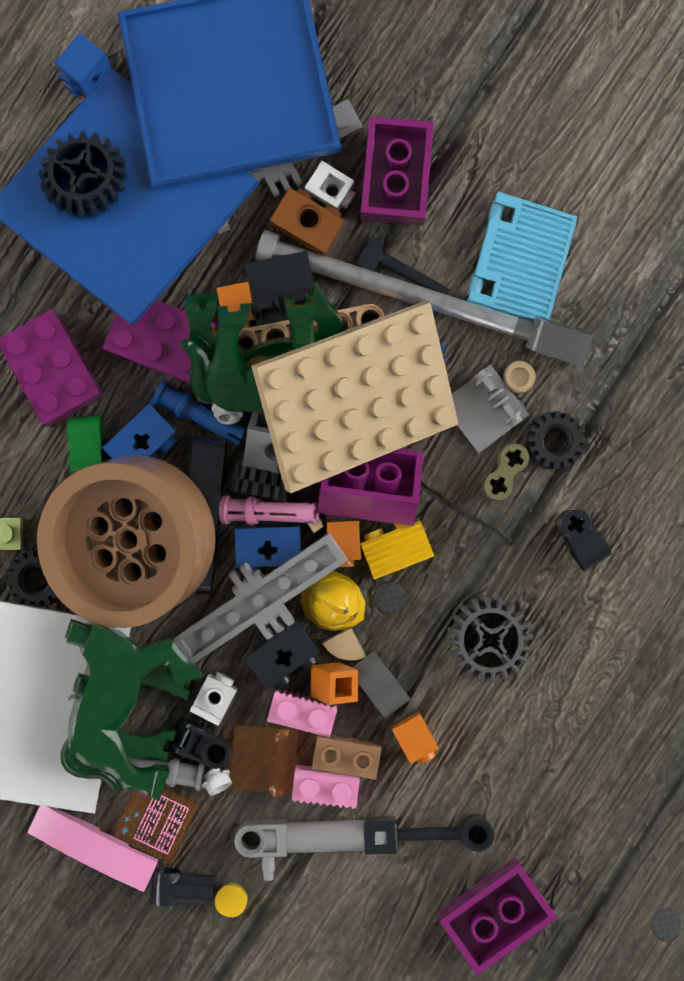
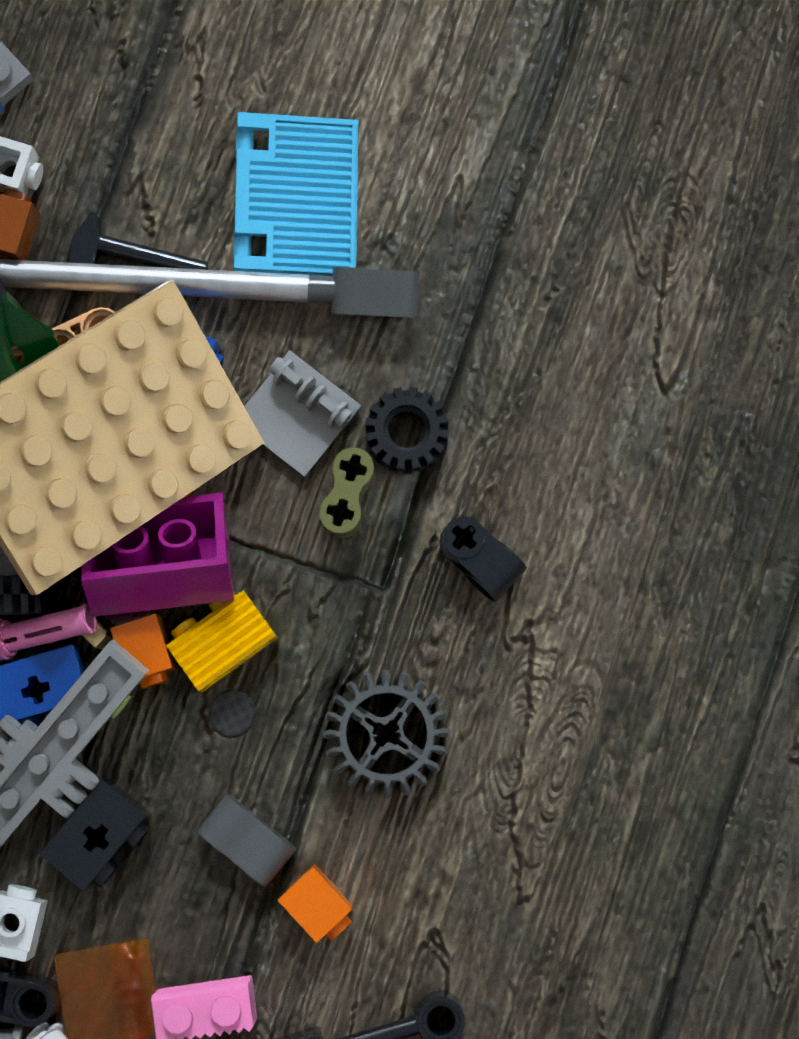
camera: 15 degrees left, 5 degrees down
(302, 713) = (144, 910): bright pink brick -> none
(333, 602) = (152, 740): yellow piece -> none
(334, 683) = (178, 855): orange brick -> none
(345, 645) = (184, 798): tan tile -> none
(347, 756) = (223, 956): medium nougat brick -> none
(397, 171) = (88, 119): magenta brick -> none
(519, 377) = (334, 357): tan tile -> none

